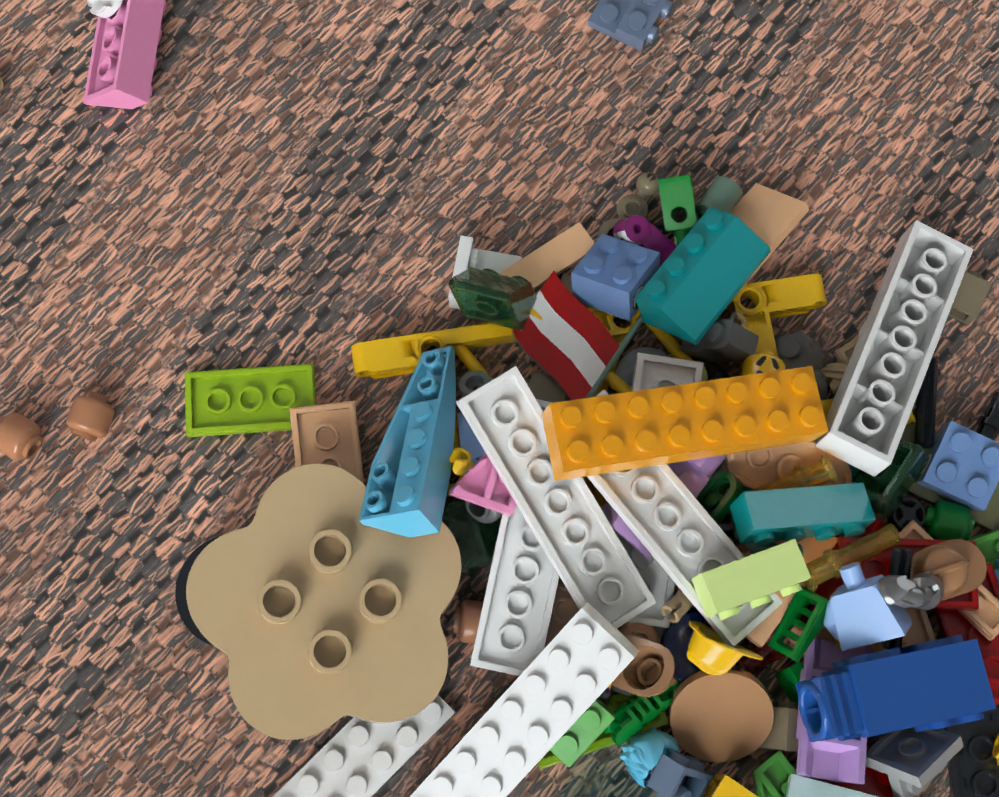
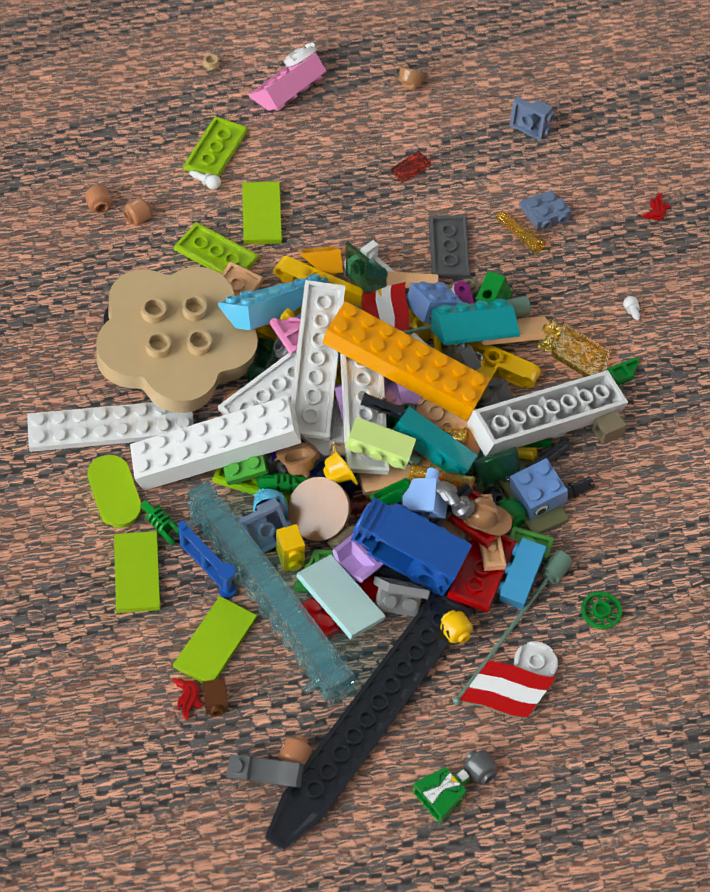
camera: 35 degrees right, 20 degrees down
(111, 227) = (216, 147): none -> lime tile
(154, 289) = (211, 181): none -> white bar
(260, 289) = (261, 213): none -> lime tile
(401, 65) = (410, 166): none -> clear red tile
(406, 306) = (324, 258): none -> light orange slope
(551, 161) = (449, 247): none -> dark grey tile
(641, 72) = (526, 236): none -> clear yellow pin
(707, 517) = (382, 405): none -> black pin
(846, 82) = (632, 307): none -> white bar
(847, 214) = (574, 349): none -> clear yellow tile
(914, 195) = (624, 371): none -> green tile

